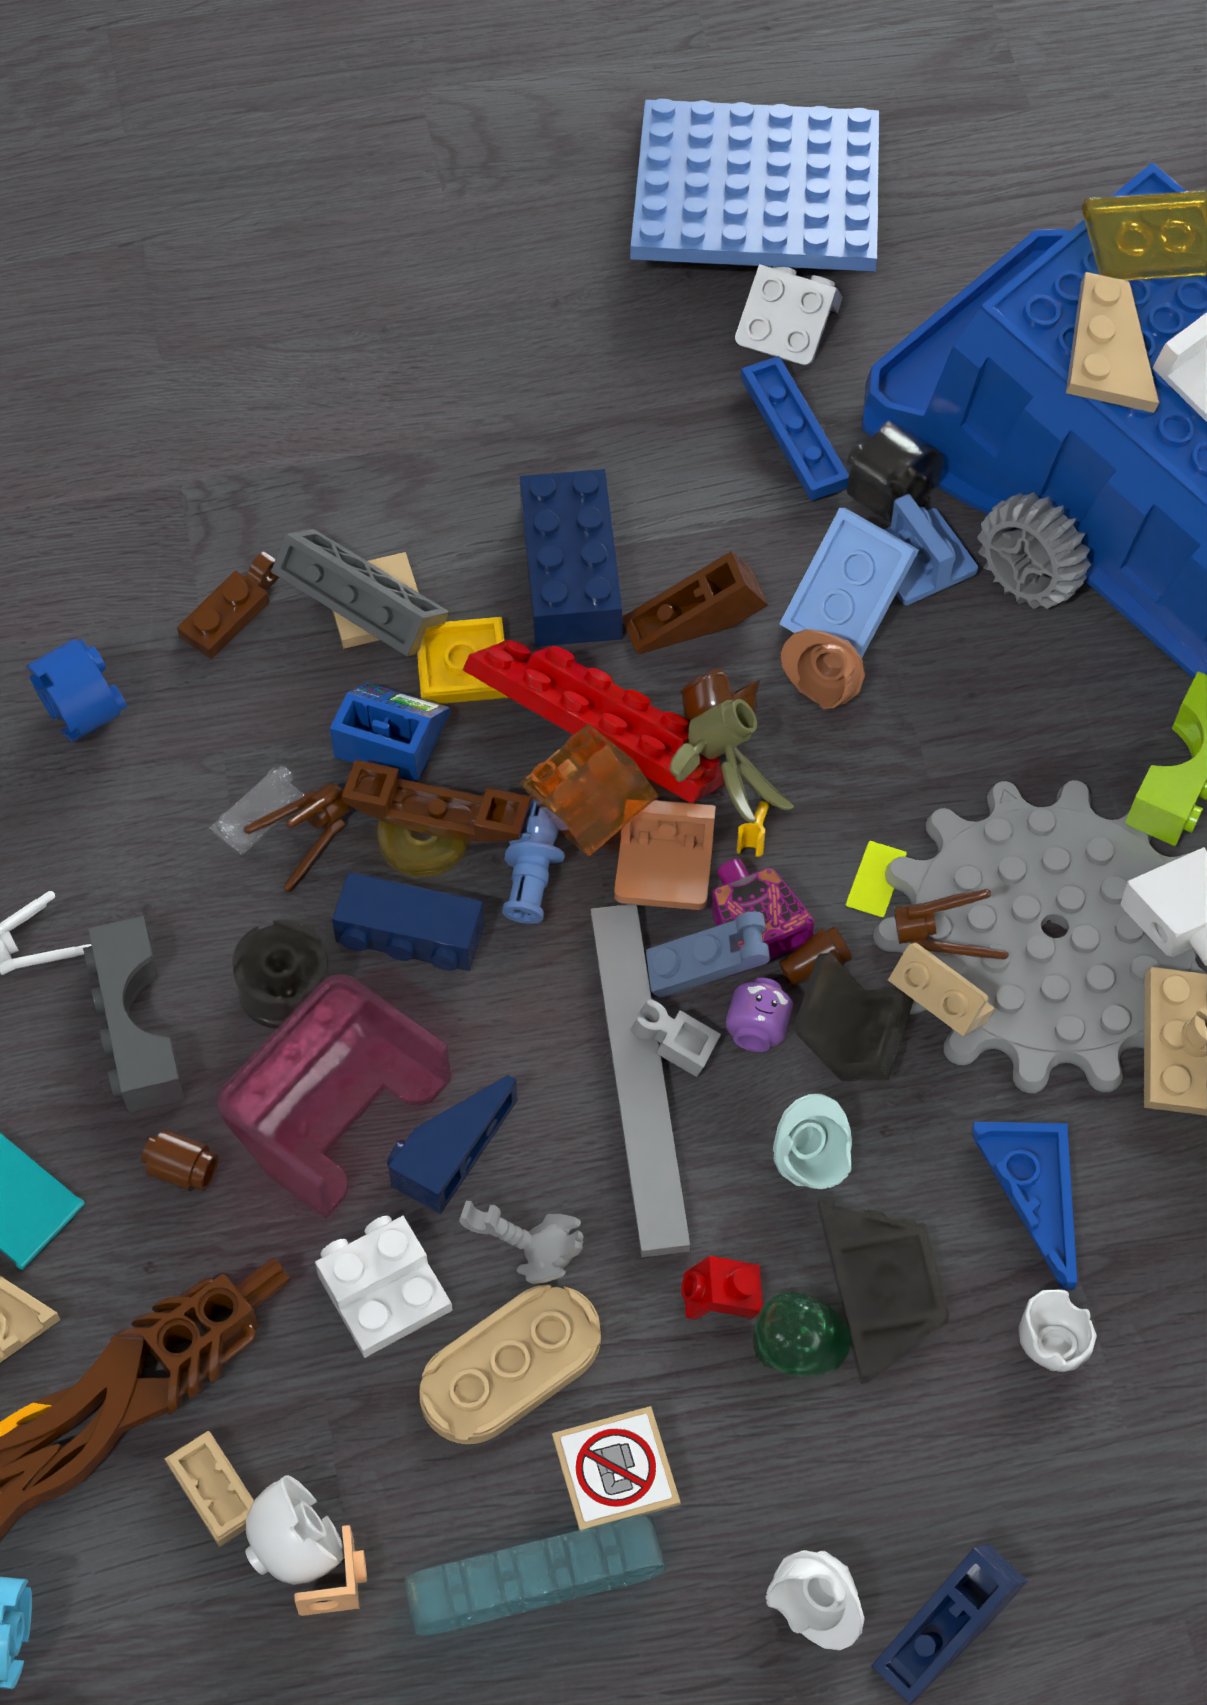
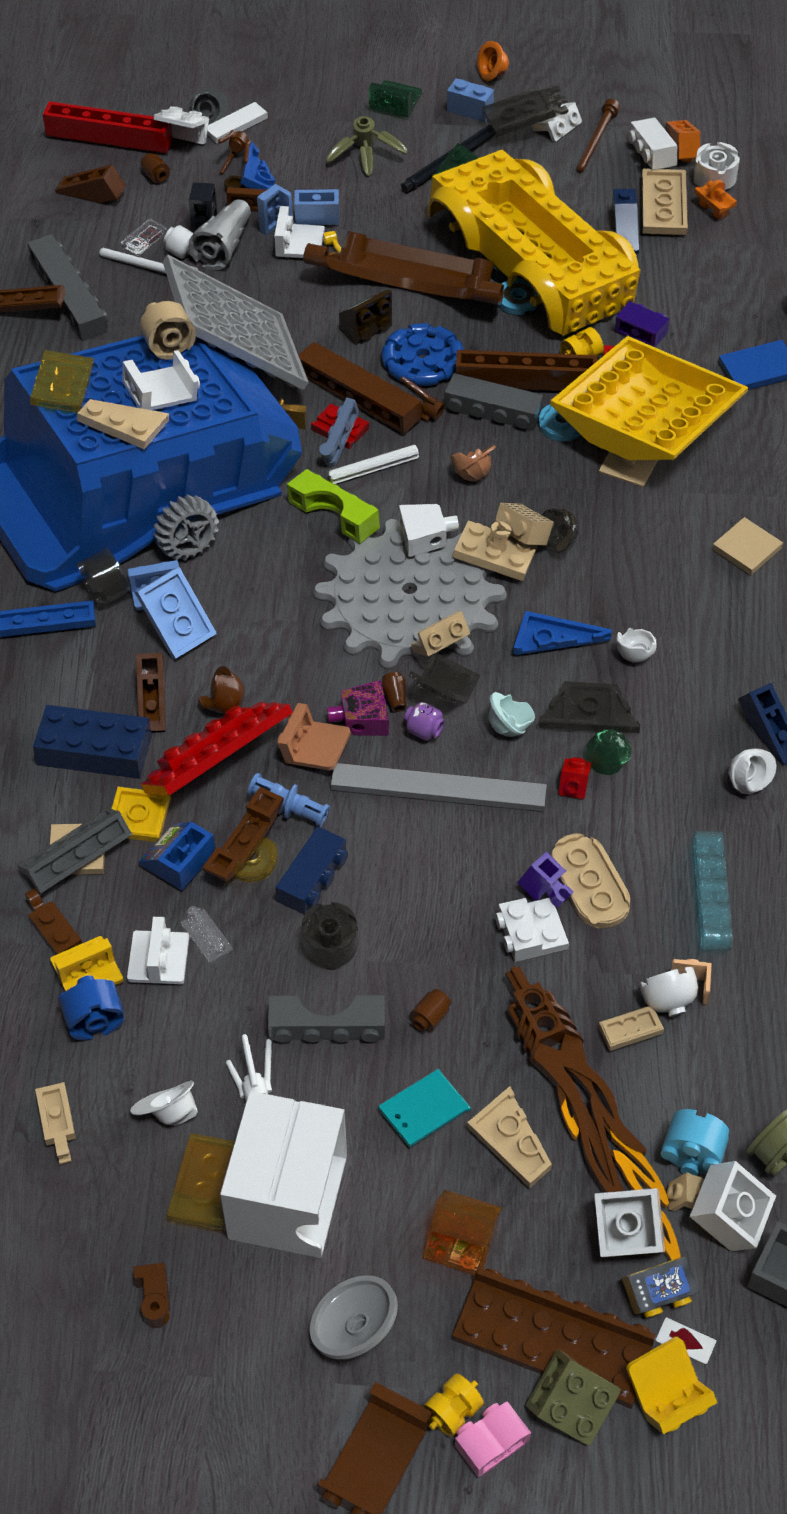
camera: 75 degrees left, 5 degrees down
(159, 669) = (87, 959): none -> yellow bracket
(202, 758) = (158, 955): none -> white bracket
(320, 1076) = (388, 908): clear pink windscreen -> none
(321, 810) = (221, 899): reddish brown plant -> none
(448, 1145) = (464, 883): dark blue slope -> none
(473, 1278) = (544, 879): none -> dark purple brick
(545, 1246) = (529, 846): light grey piece -> none
(589, 789) = (271, 752): clear orange slope -> none
(616, 1468) = (666, 838): piece -> none
(682, 1039) = (426, 758): light grey plate -> none
(707, 955) = (385, 732): sand blue plate -> none
(719, 733) = (253, 686): olive plant -> none
(753, 833) = (310, 699): yellow hand -> none
(823, 667) = (221, 640): nougat piece -> none
(870, 889) = (356, 662): neon yellow sticker -> none
(918, 921) = (396, 638): reddish brown plant -> none

